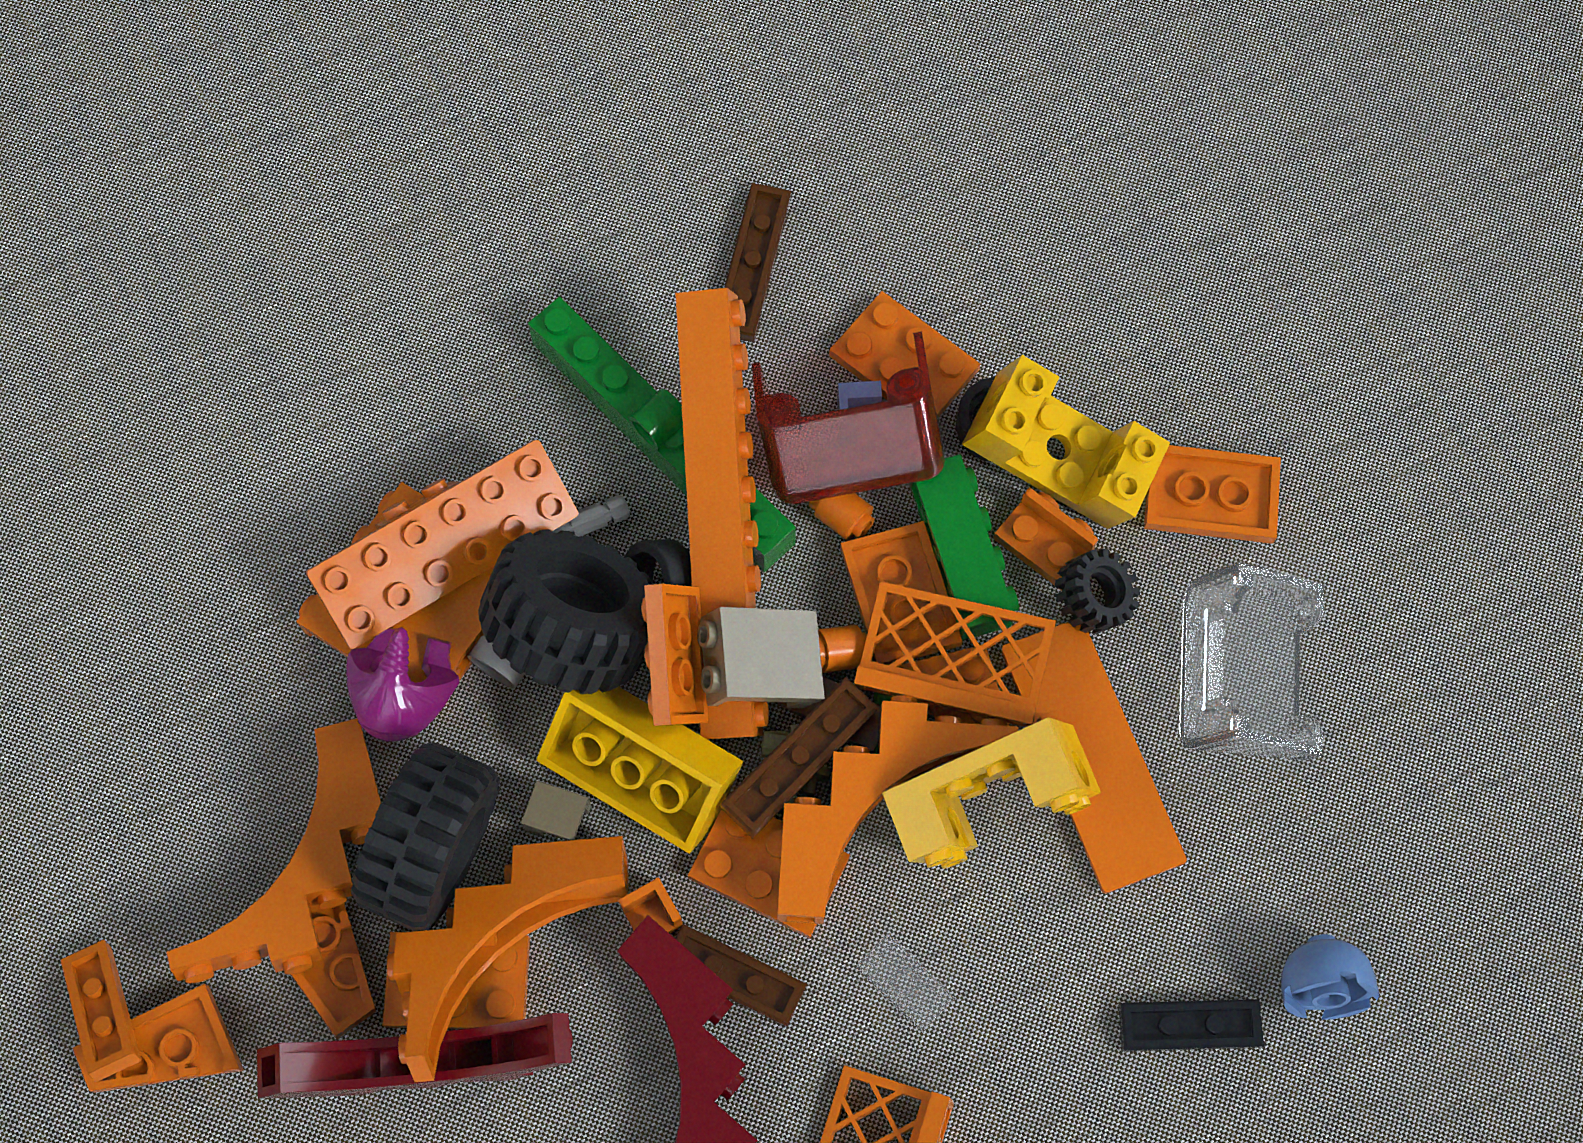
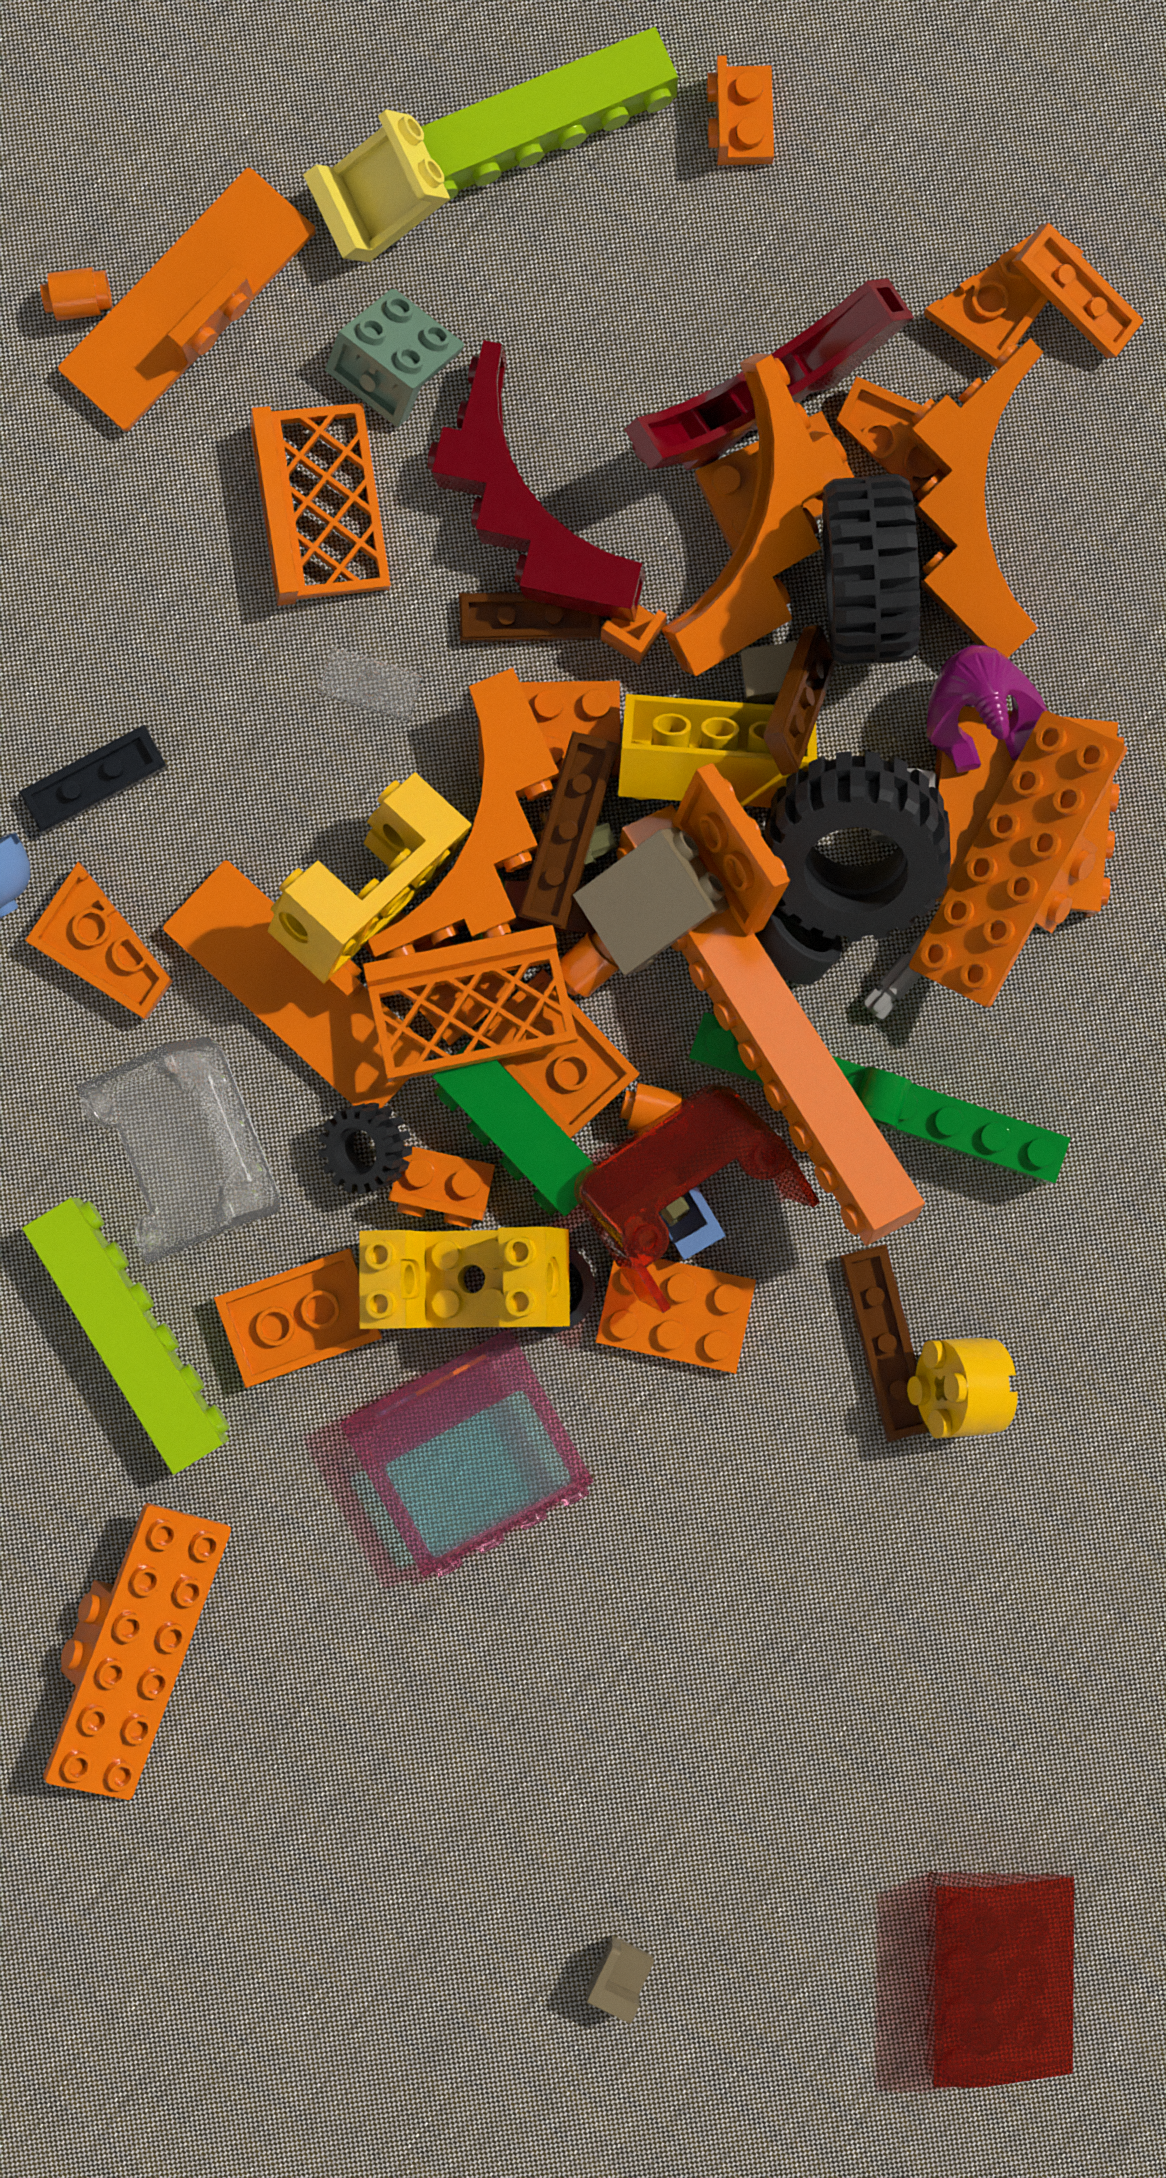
camera: 155 degrees right, 15 degrees up
(547, 759) = (800, 700): none -> reddish brown tile
(714, 188) = (964, 1387): none -> yellow brick
(1126, 329) = (468, 1454): none -> panel
(1248, 873) = (99, 945): none -> orange wing
(1361, 547) = (126, 1333): none -> lime brick
(1458, 314) = (132, 1650): none -> orange bracket

